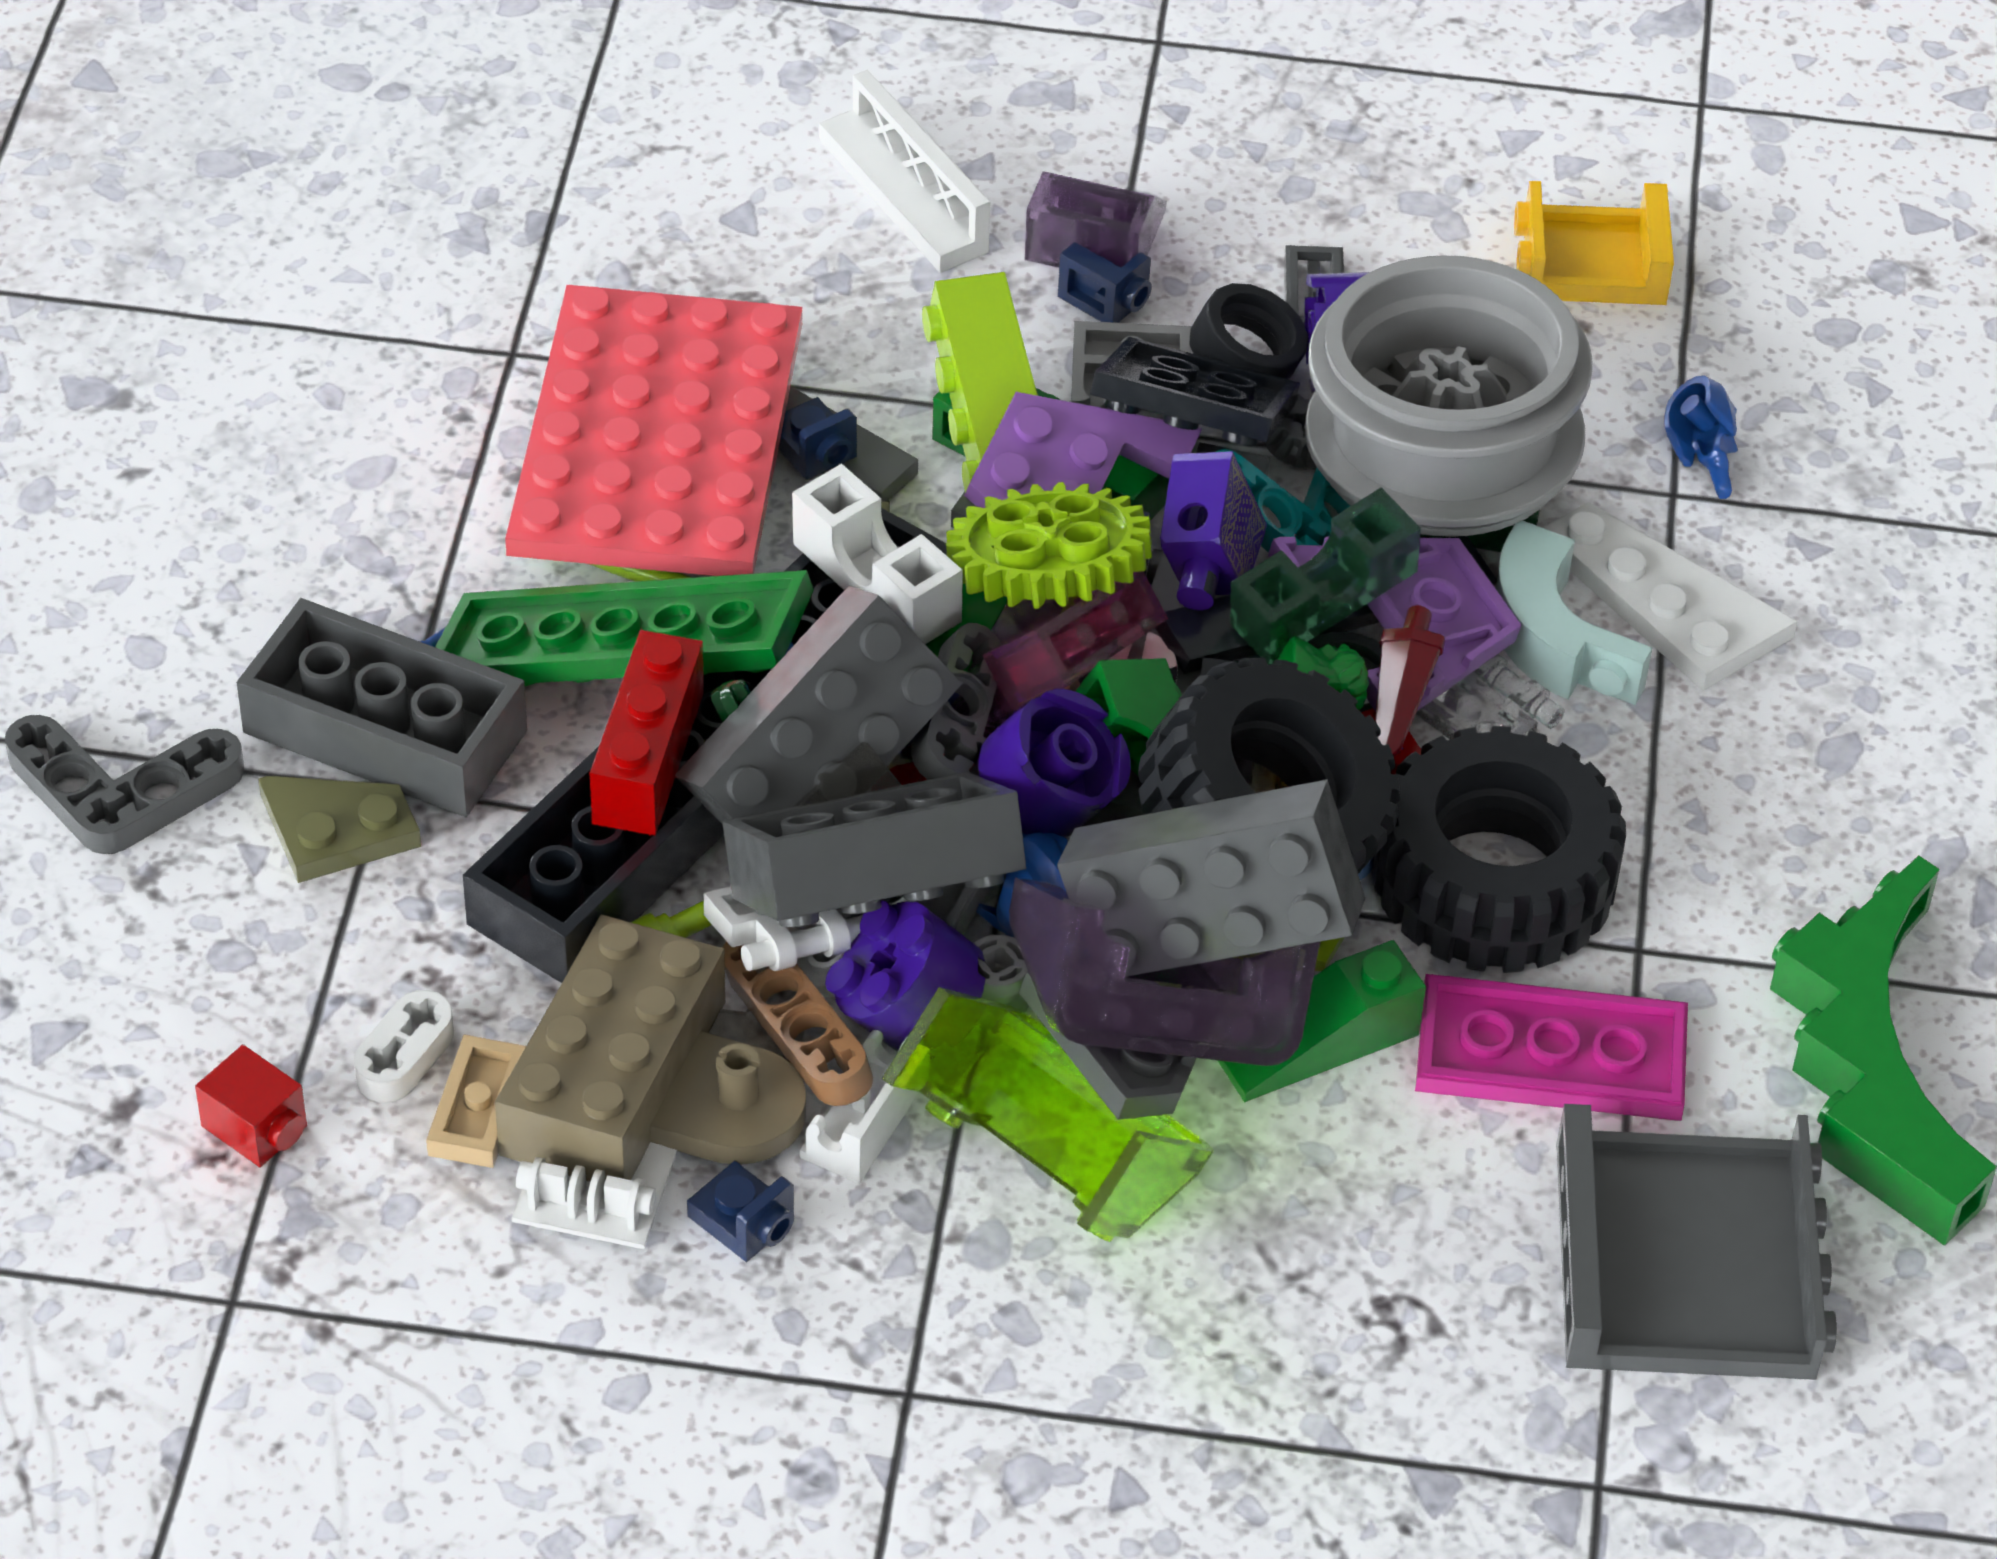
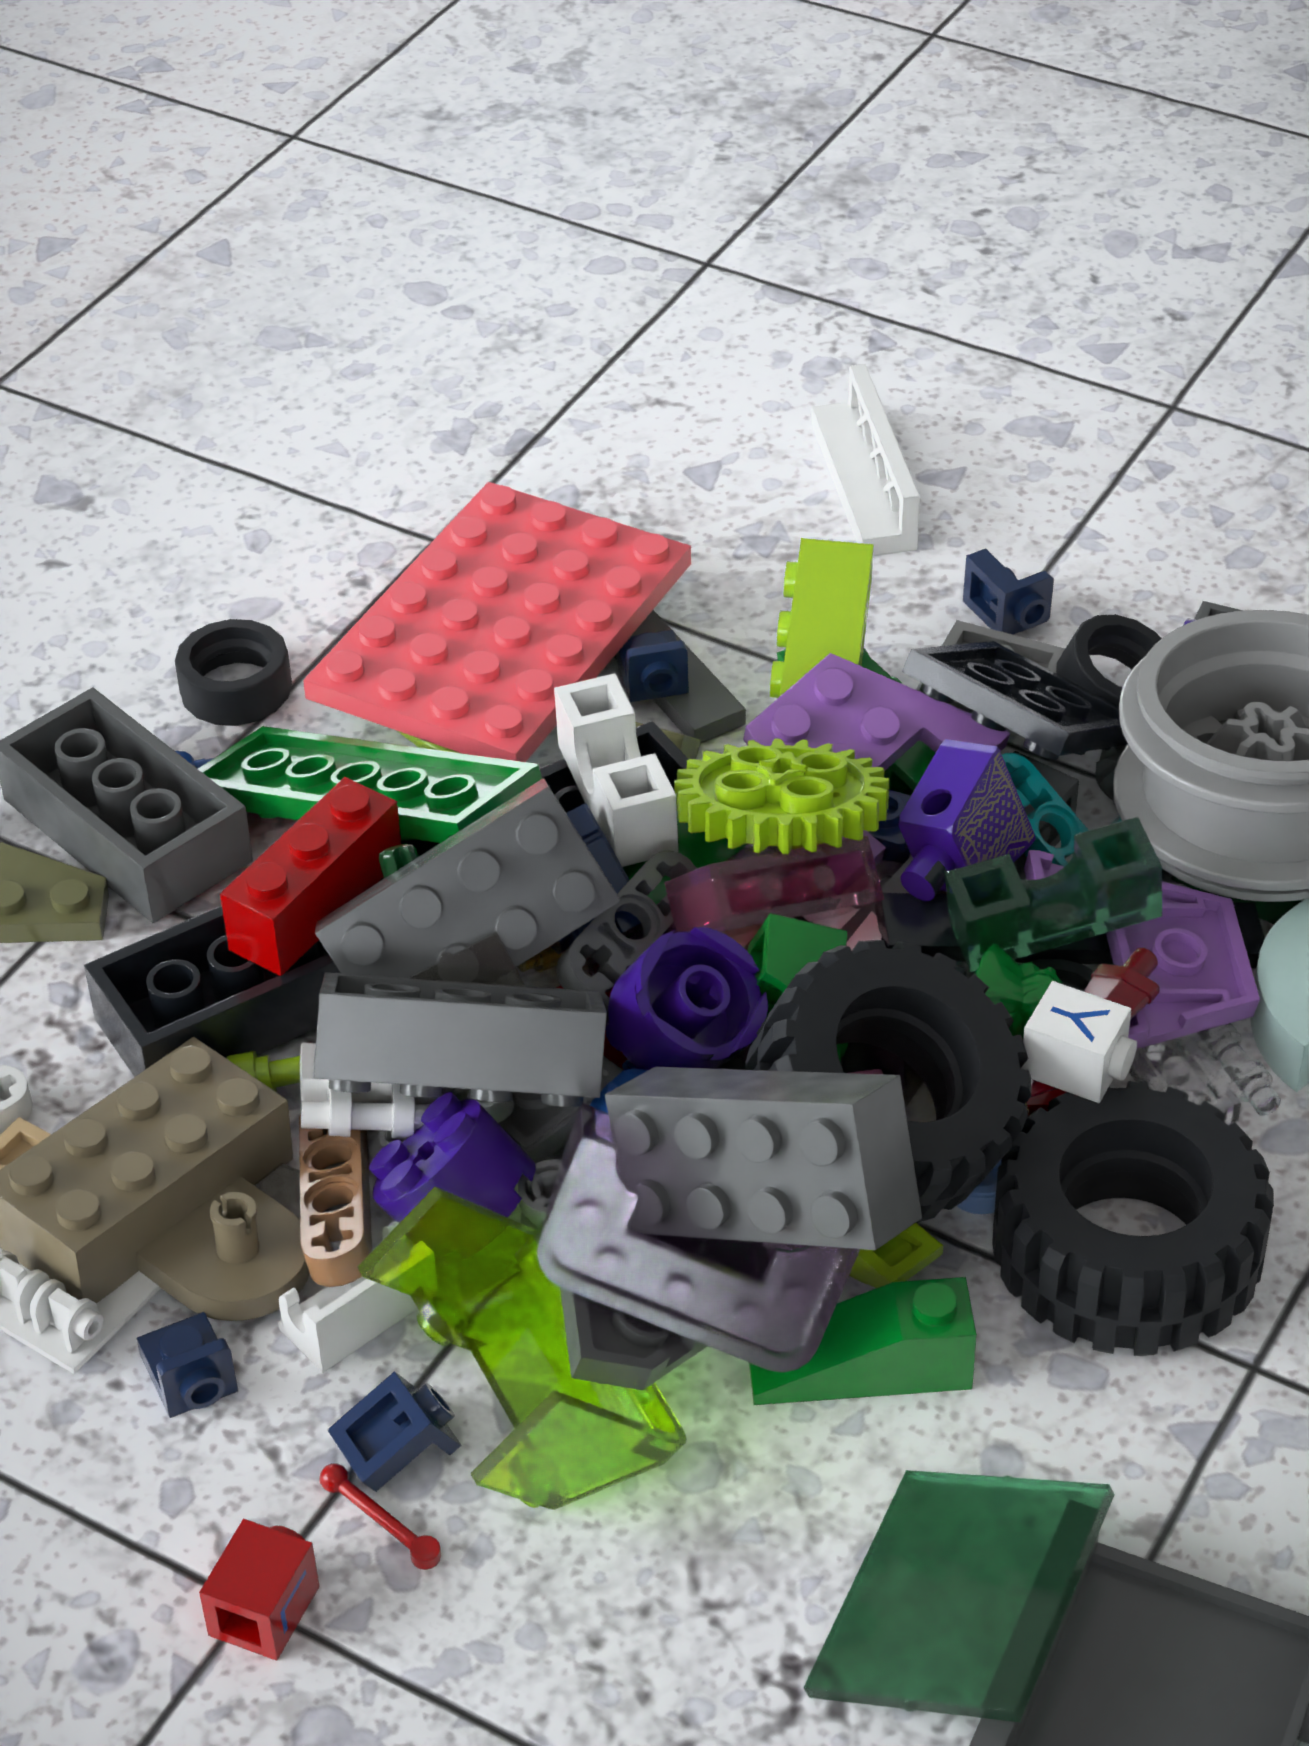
camera: 25 degrees right, 5 degrees down
(394, 511) = (237, 700): none -> black tyre
(923, 1376) = (260, 1588): none -> red brick
(960, 1212) = (393, 1429): none -> dark blue bracket
(1034, 1305) = (424, 1550): none -> red hinge
(1095, 215) = (1016, 534): clear purple slope -> none
(1415, 706) = (1078, 1042): none -> white brick
(1503, 1202) = (961, 1594): none -> clear green piece
(1552, 1047) = (1064, 1418): dark pink tile -> none

